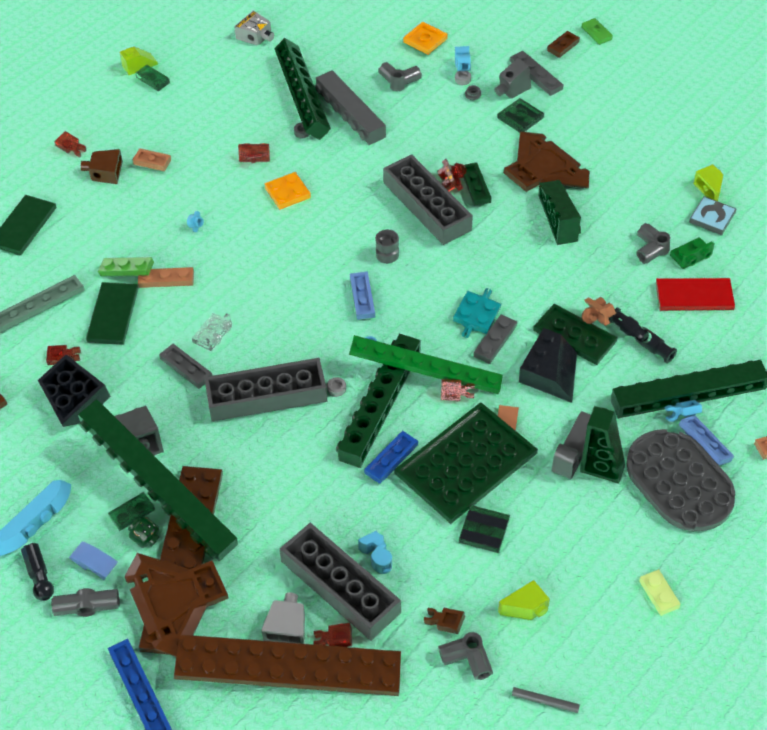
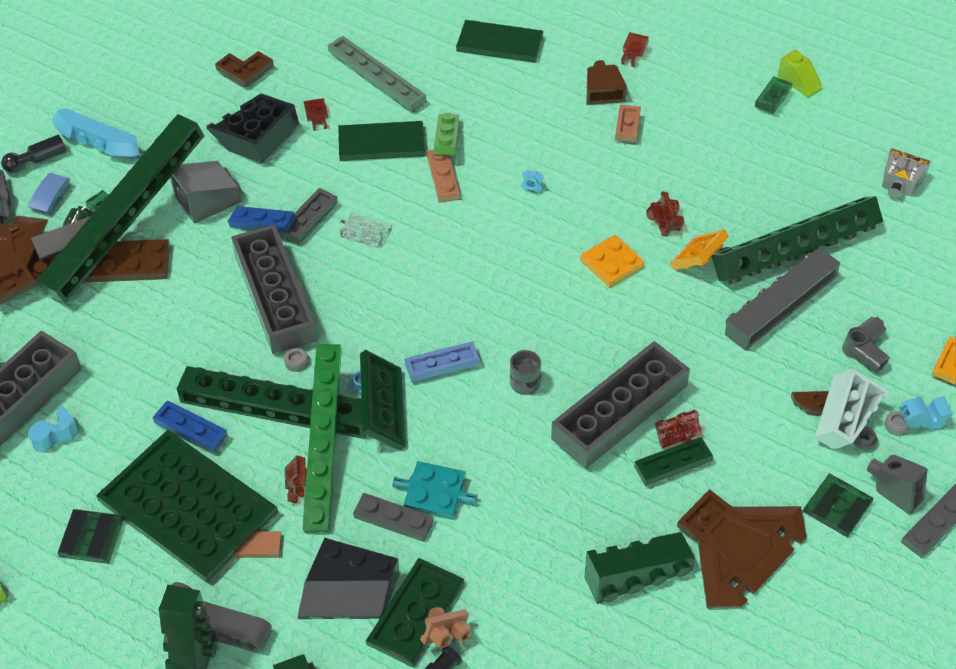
camera: 80 degrees right, 0 degrees up
(166, 535) = (55, 240): none -> dark grey tile
(182, 396) = (257, 218): none -> blue plate
(299, 137) = (699, 250): none -> light orange plate
(396, 328) = (382, 400): none -> dark green tile
(439, 109) = (811, 401): none -> reddish brown plate
(455, 92) = (848, 407): none -> light aqua wedge

